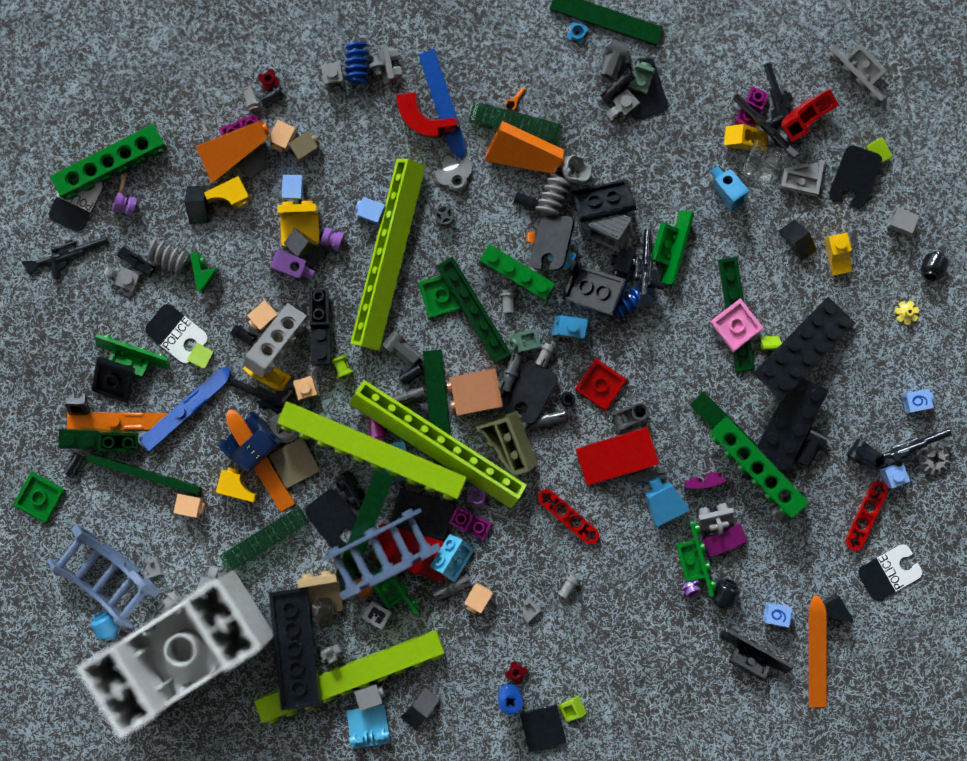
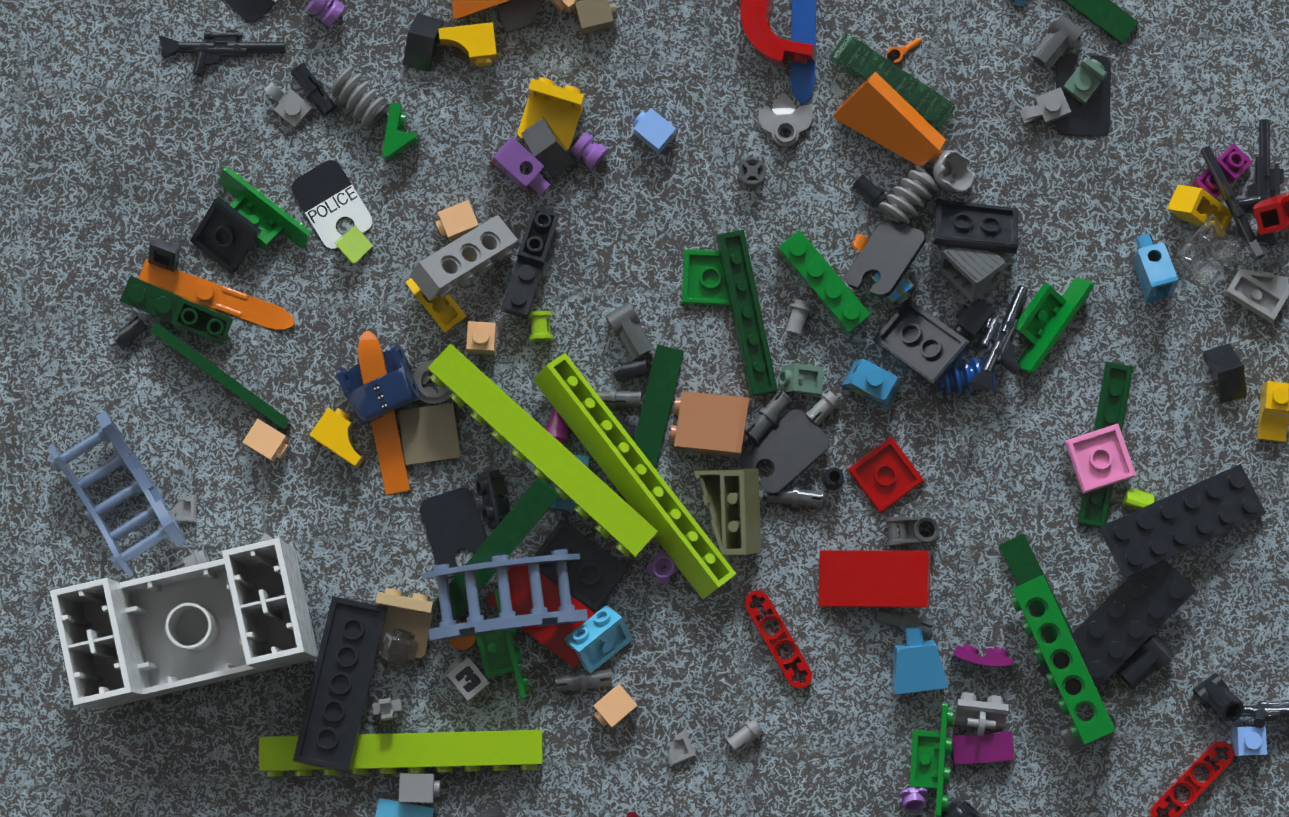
camera: 20 degrees right, 5 degrees down
(39, 497) = (66, 359): green tile -> none
(104, 626) = (93, 562): dark azure head -> none
(185, 408) = (308, 309): piece -> none
(242, 334) = (421, 237): black pin -> none
(264, 539) = (351, 521): clear green beam -> none
(268, 399) = (425, 336): black piece -> none
(293, 188) = (560, 64): light blue brick -> none
(388, 254) = (656, 197): lime brick -> none
(470, 523) = (640, 601): magenta slope -> none
(617, 86) = (1048, 80): black pin -> none

